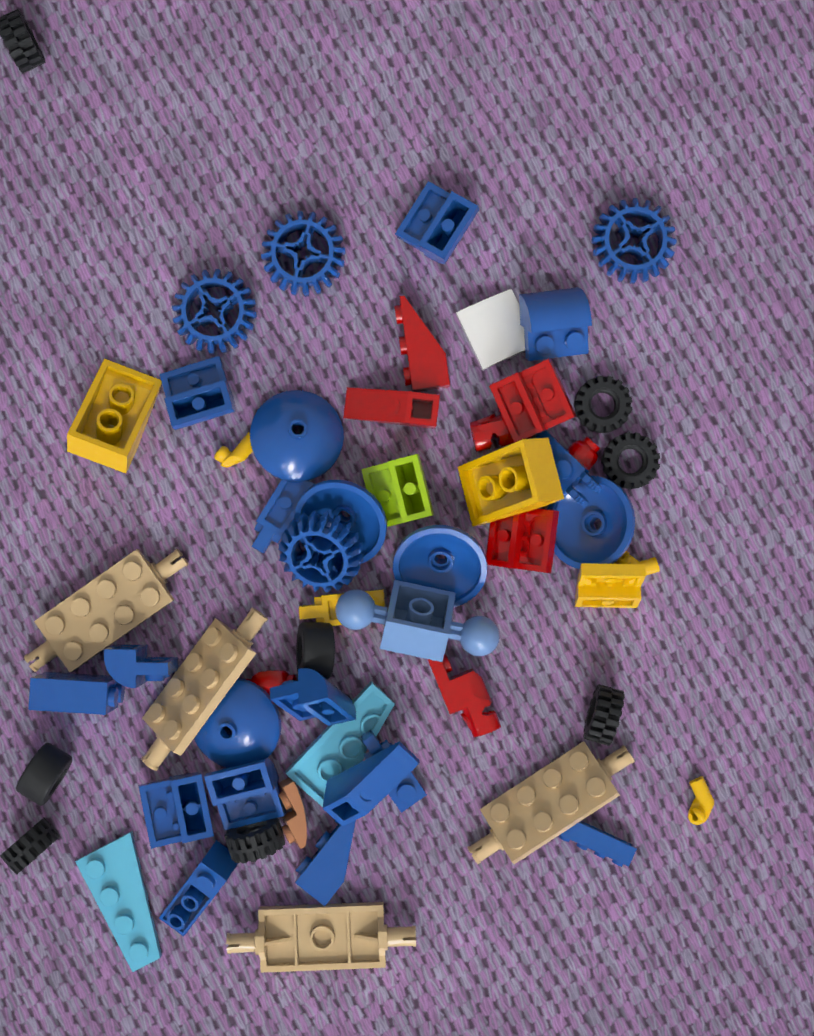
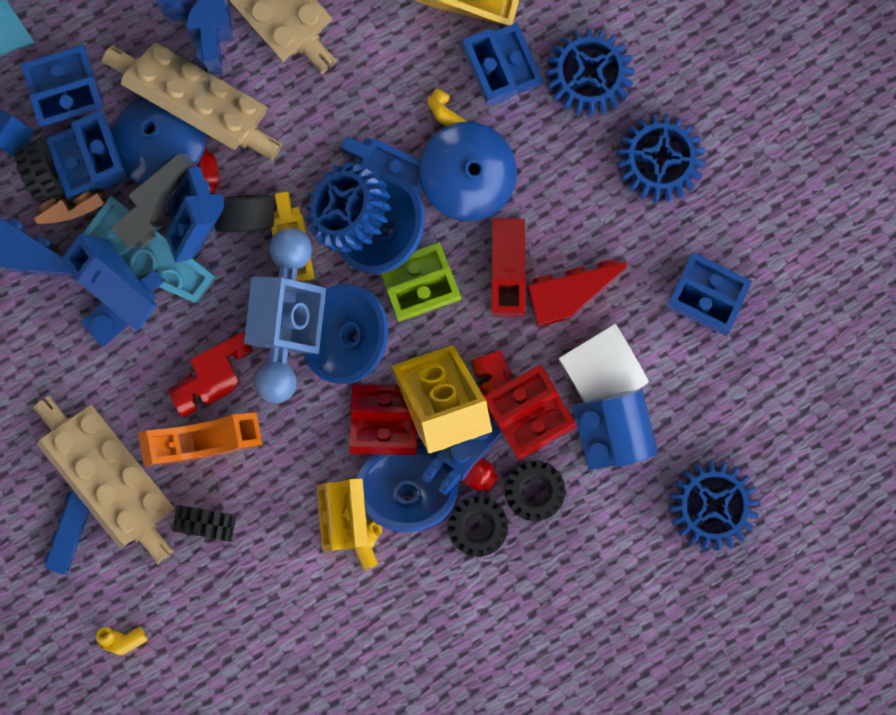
camera: 85 degrees right, 5 degrees down
(295, 738) = (141, 223): none -> dark grey slope
(525, 711) = (200, 440): none -> orange arch

